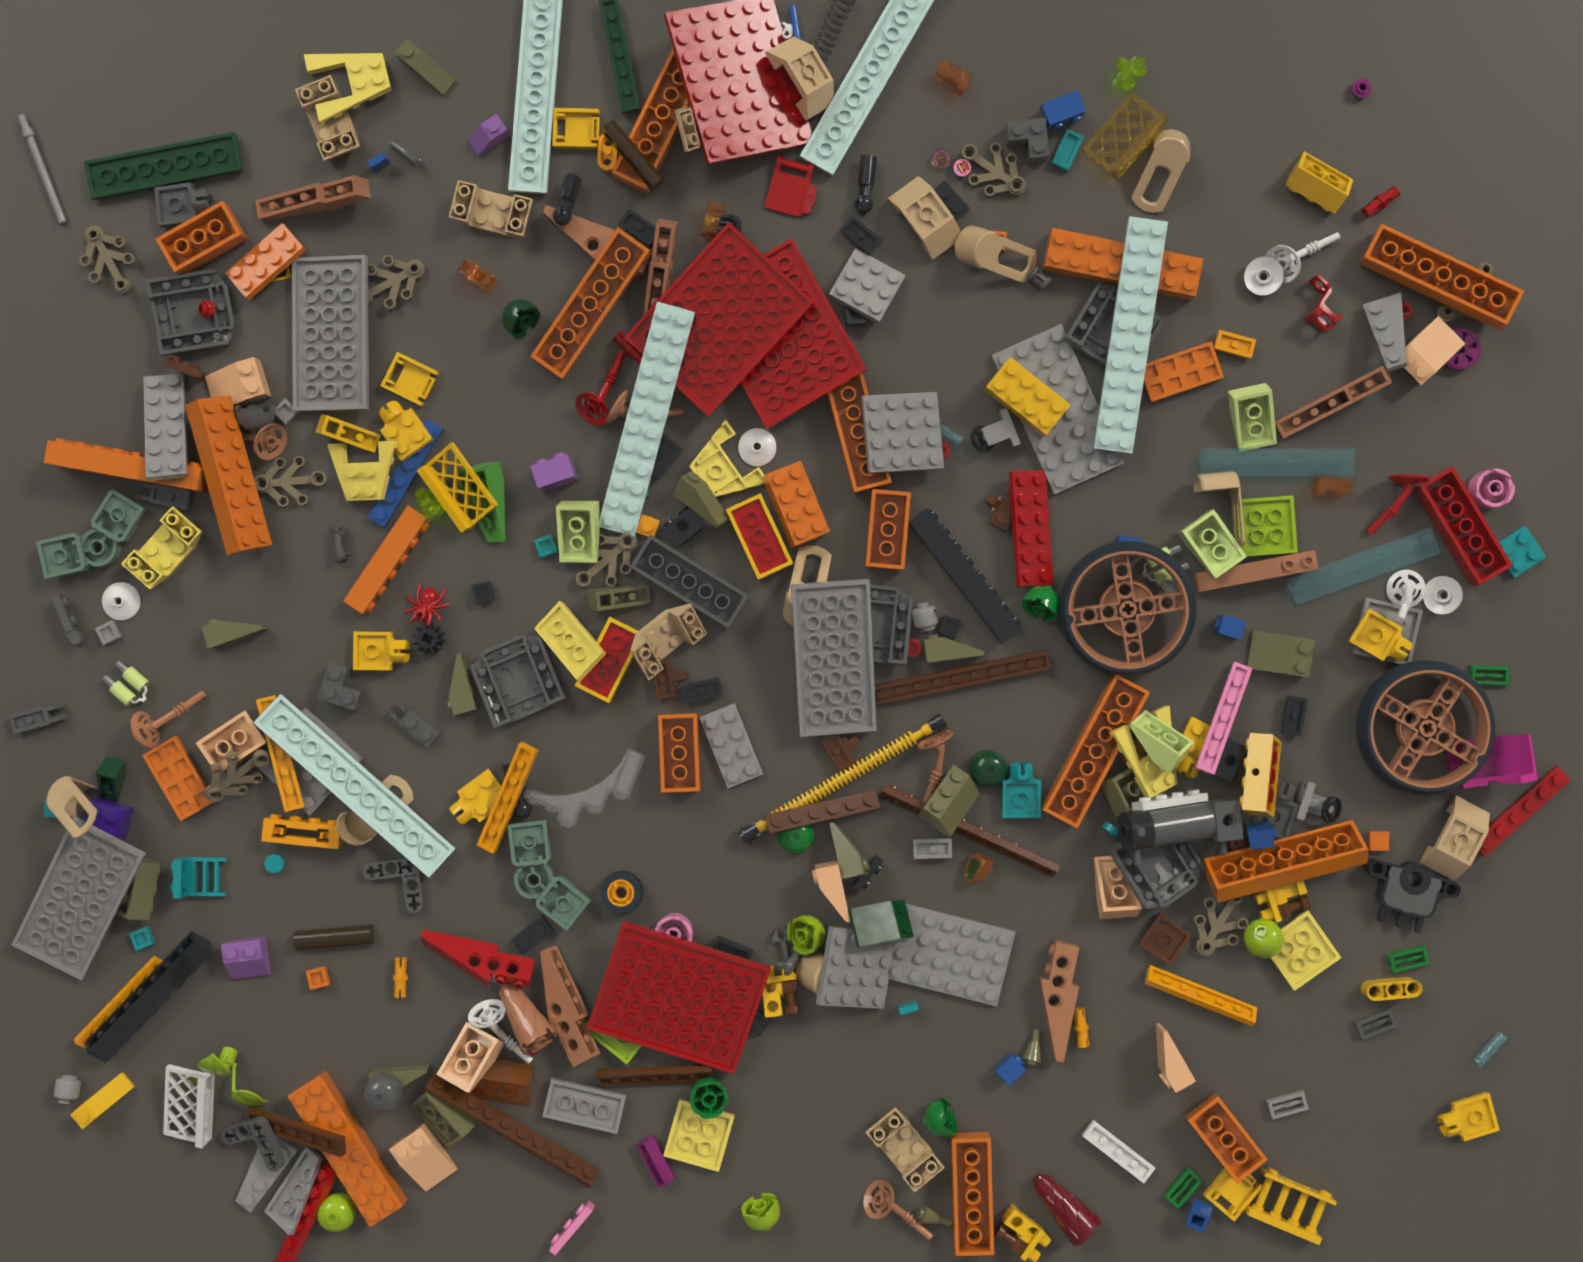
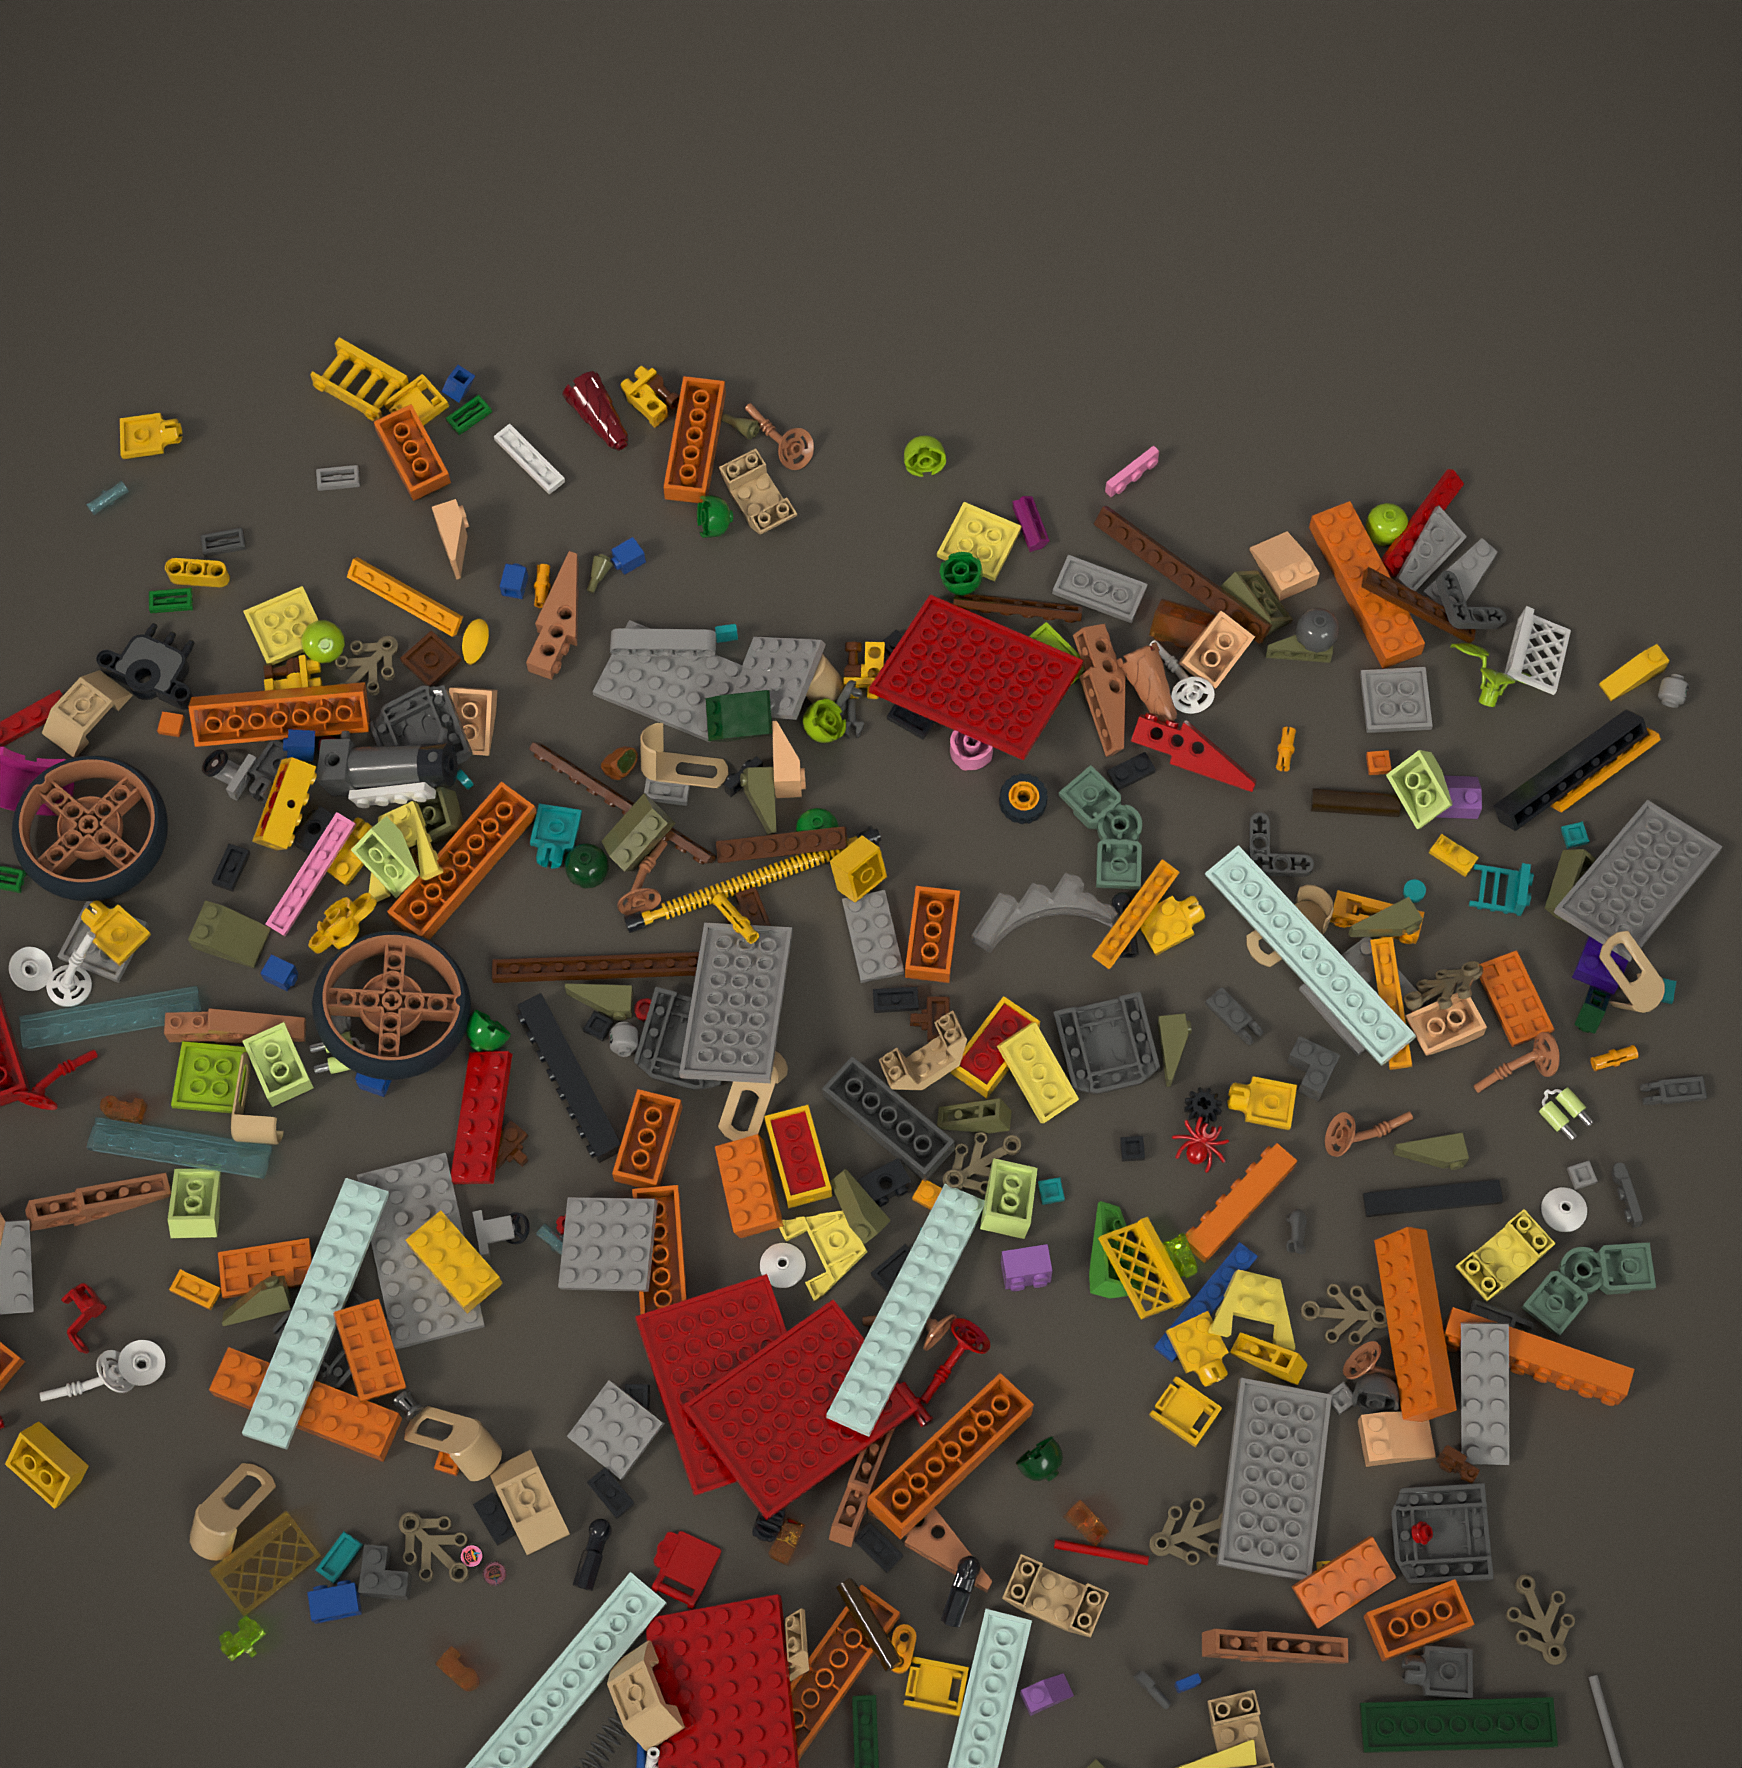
camera: 165 degrees left, 20 degrees down
(90, 739) = (1614, 1058): none -> light orange pin
(229, 592) = (1432, 1198): none -> black tile
(244, 902) = (1453, 855): none -> yellow plate
(274, 954) = (1421, 787): none -> yellowish green slope
(283, 826) = (1390, 922): none -> olive slope
(305, 630) = (1346, 1135): none -> nougat dish
(309, 1040) = (1396, 699): none -> light grey plate
(462, 255) = (1101, 1552): none -> red bar
(752, 799) = (858, 868): none -> yellow brick
(843, 730) = (740, 923): none -> yellow pin
(942, 870) = (662, 765): none -> tan piece
(961, 986) = (663, 642): none -> light grey beam
(1079, 309) = (369, 1350): none -> orange plate
(1106, 1027) = (514, 581): none -> blue brick
(1129, 963) = (475, 641): none -> yellow arm
(1178, 341) = (264, 1299): none -> olive slope
(1187, 674) = (341, 922): none -> yellow plant

